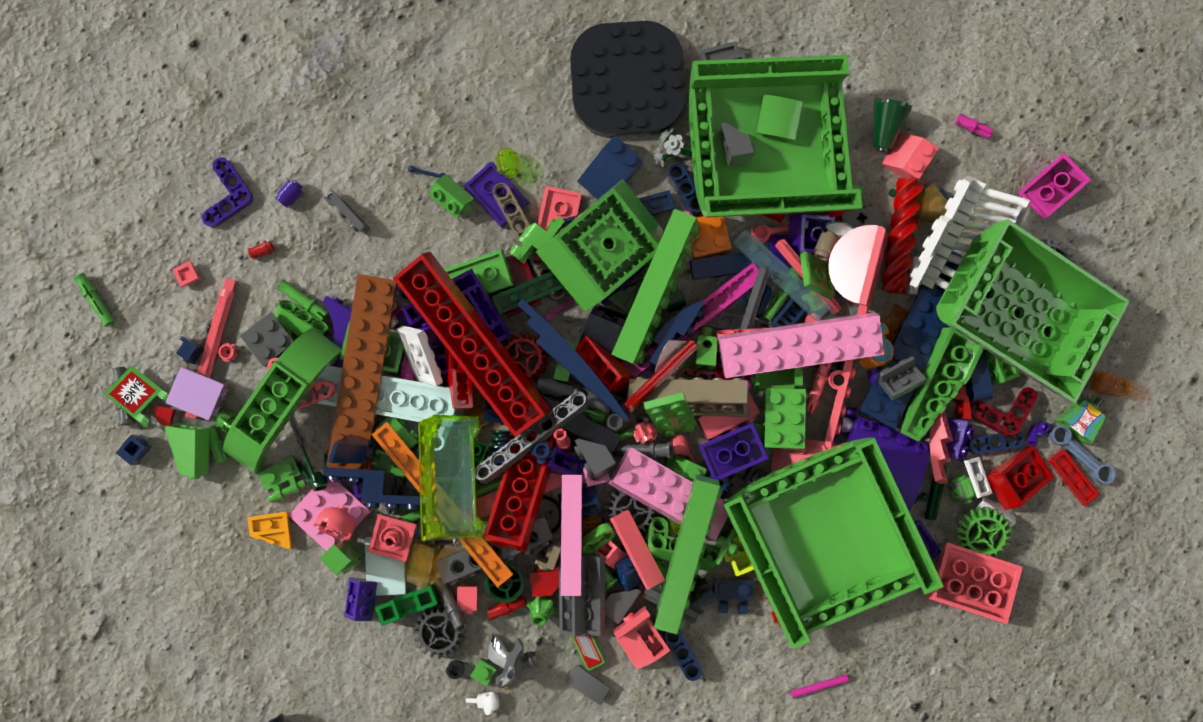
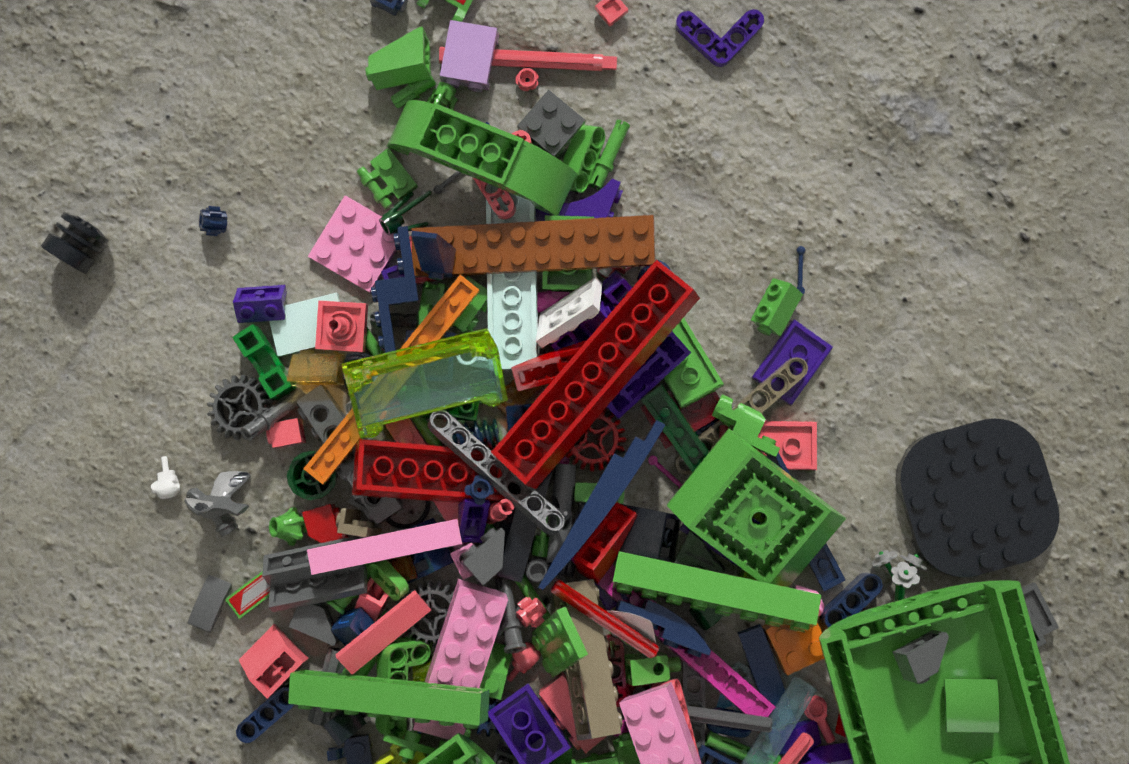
camera: 80 degrees right, 0 degrees up
(164, 415) = (436, 22): red tile -> none
(189, 350) = (520, 34): dark blue panel -> none
(260, 250) = (660, 91): red pin -> none
(272, 528) = (325, 179): light orange wing -> none
(284, 625) = (213, 220): none -> dark blue gear
(289, 193) = (737, 109): dark purple brick -> none
(336, 522) = (346, 255): coral cylinder -> none
(341, 557) = (304, 271): bright green brick -> none
(345, 210) = (730, 182): dark grey hinge -> none
(448, 670) = (195, 443): black bush -> none
(483, 672) = (201, 471): bright green plate -> none
(506, 608) = (280, 478): red pin -> none
(507, 162) = (835, 368): clear neon green head -> none
(609, 167) = (856, 498): dark blue slope -> none
(631, 621) = (294, 642): coral plate -> none

